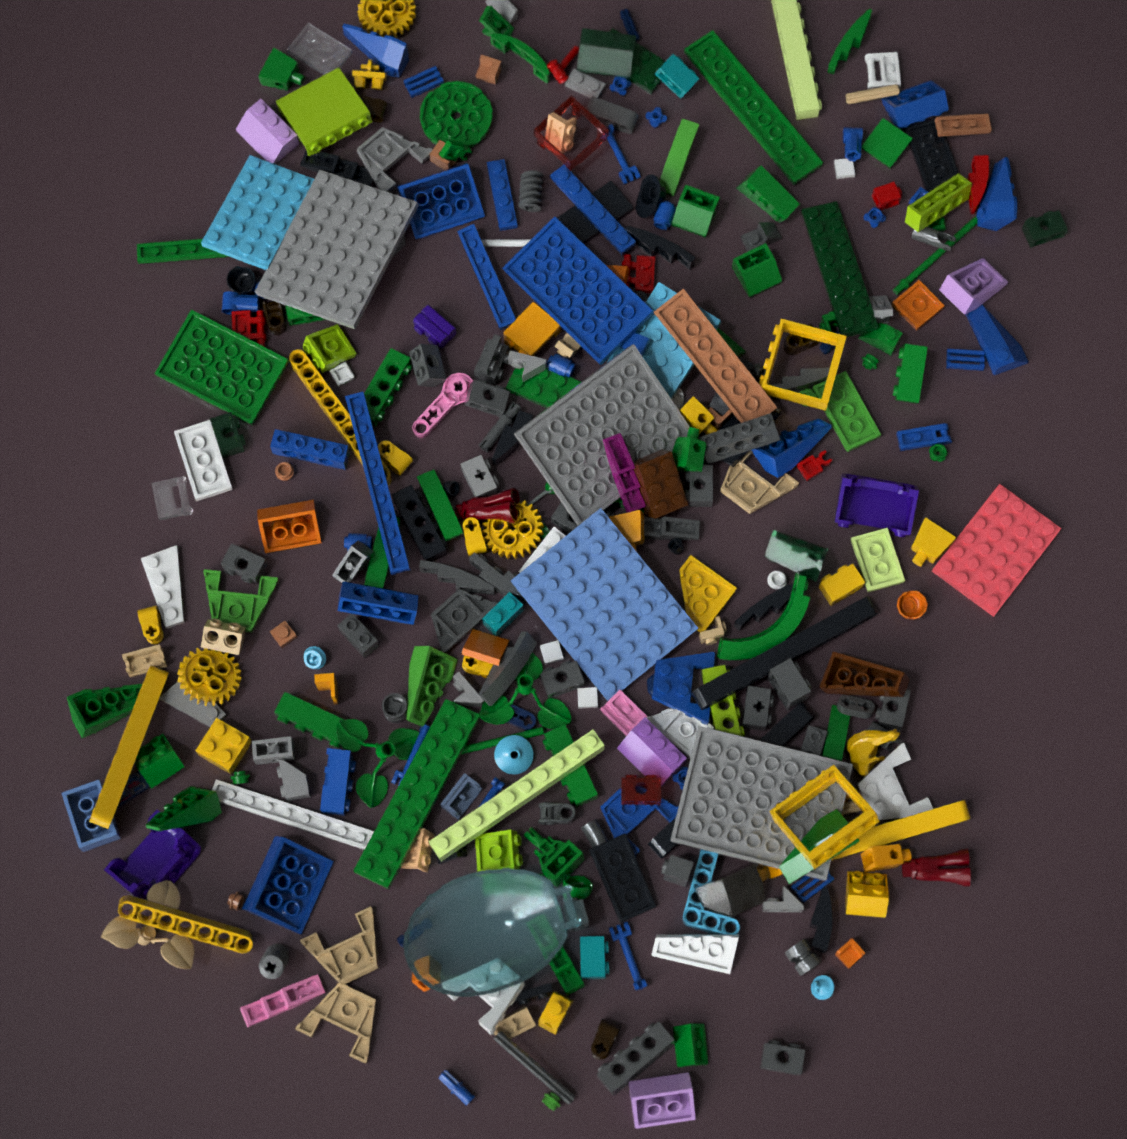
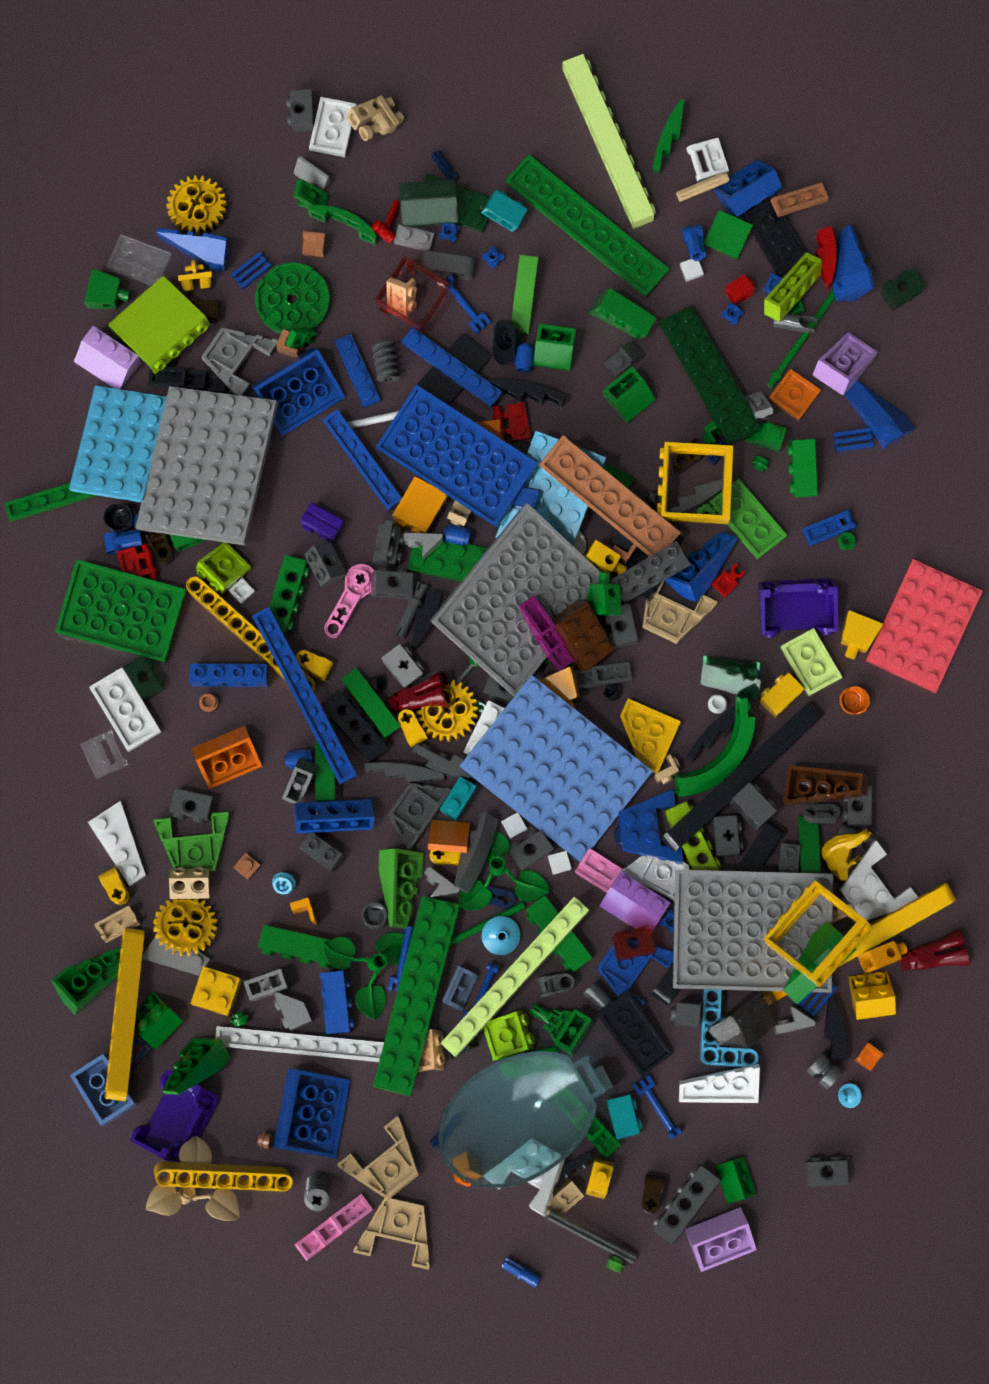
camera: 10 degrees left, 5 degrees up
(580, 886) = (595, 1050): green hair -> none

